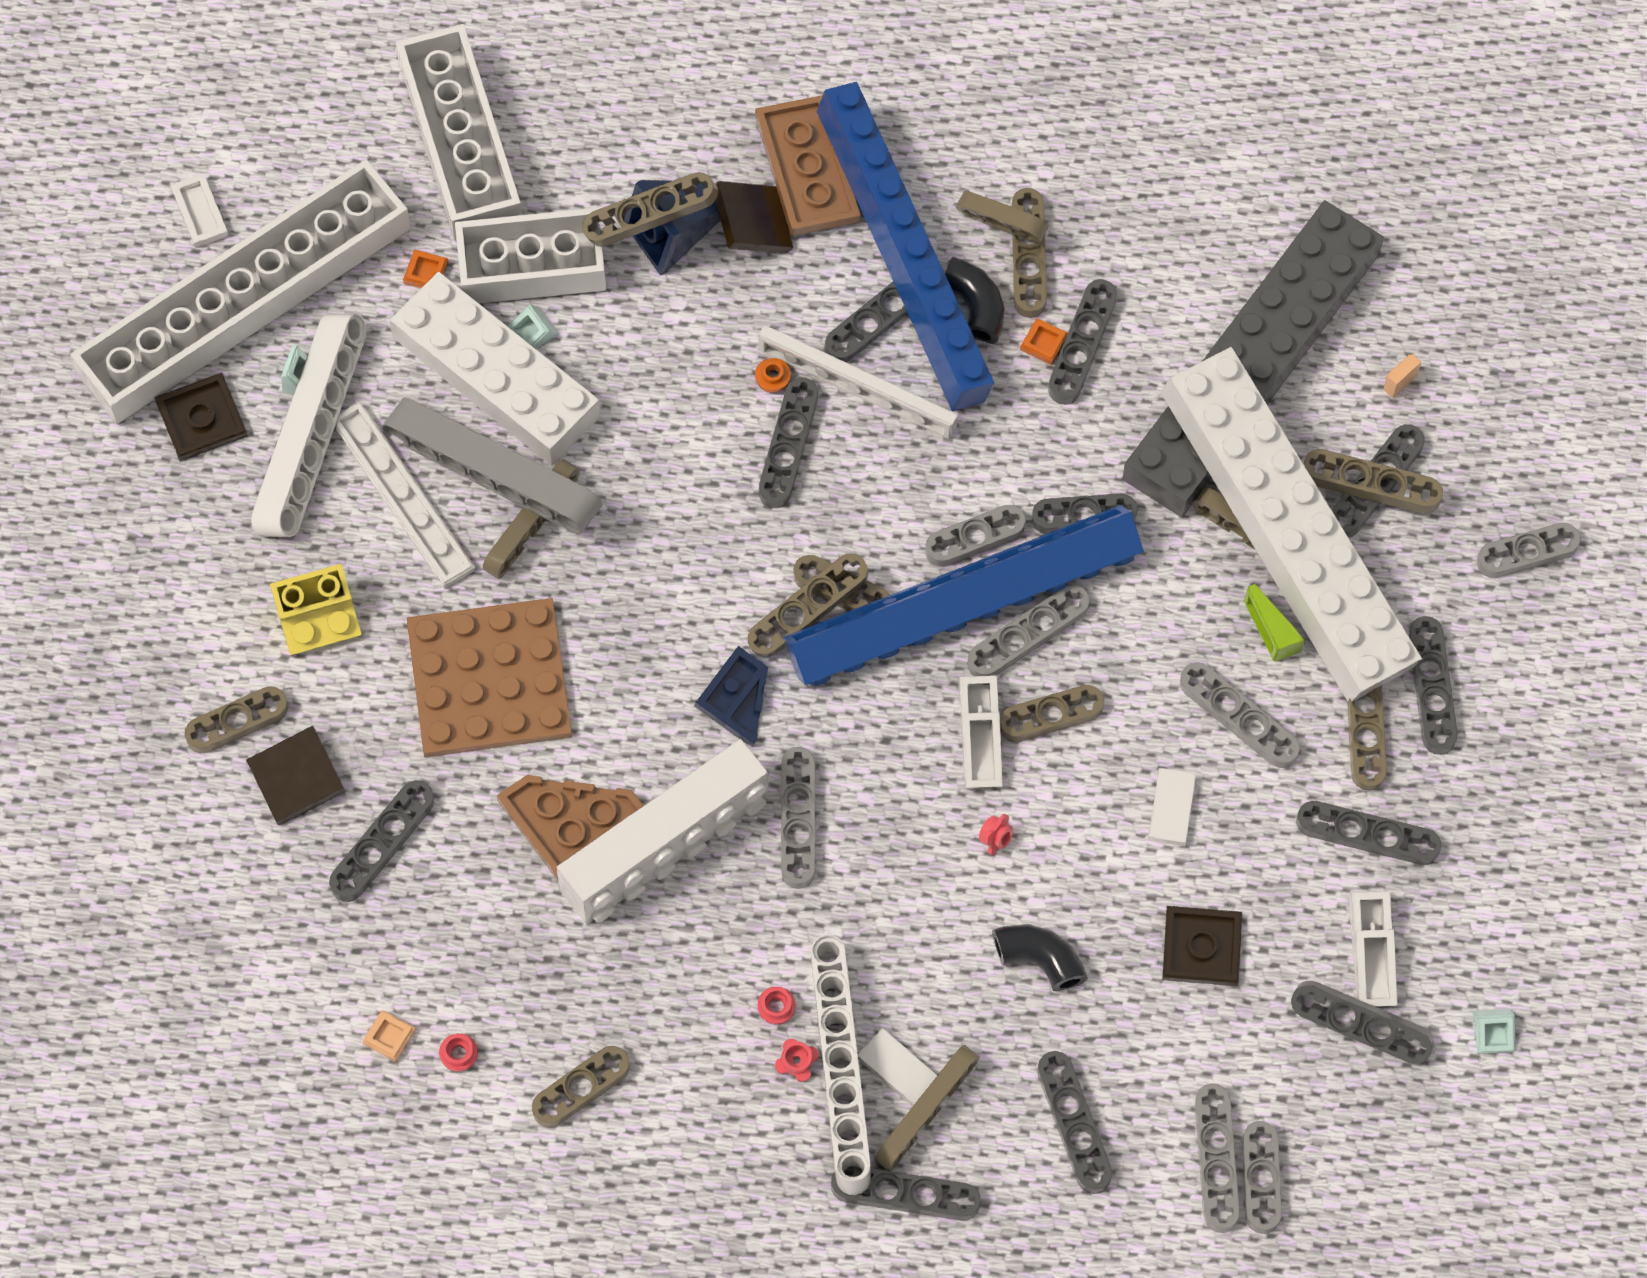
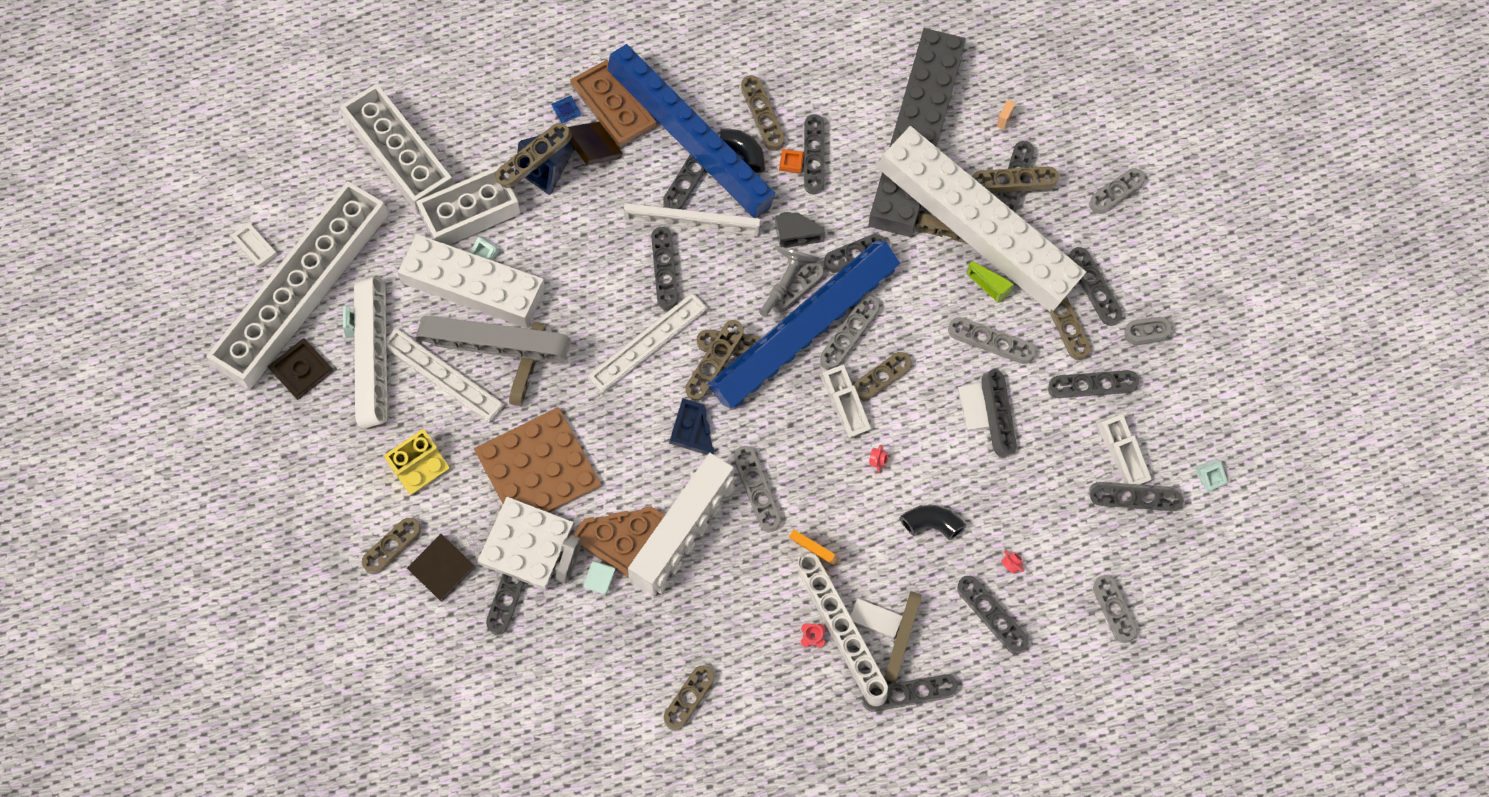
camera: 20 degrees left, 0 degrees up
(388, 1035) = (558, 708): light nougat tile -> none
(423, 268) = (405, 235): orange tile -> none
(428, 781) = (525, 543): none -> white plate
(452, 1042) = (602, 696): coral plate -> none
(476, 833) = (564, 568): none -> light grey plate
(517, 868) = (599, 577): none -> light aqua slope
(720, 546) = (647, 343): none -> white tile
(733, 152) = (566, 109): none -> clear blue tile
(772, 384) = (639, 237): orange plate -> none
(780, 994) = (788, 599): coral plate -> none
(844, 931) = (814, 547): none -> light orange tile
(942, 534) = (780, 289): none -> light grey dish
(1002, 216) = (740, 96): dark tan beam -> none
(1008, 450) = (797, 230): none -> dark grey slope
(1135, 1055) = (1012, 562): none -> coral plate
(1202, 946) = (1024, 483): dark brown tile -> none
(1210, 830) = (1002, 439): none -> dark grey beam
(1217, 1158) = (1087, 605): light grey beam -> none
(1485, 778) = (1146, 329): none -> light grey plate

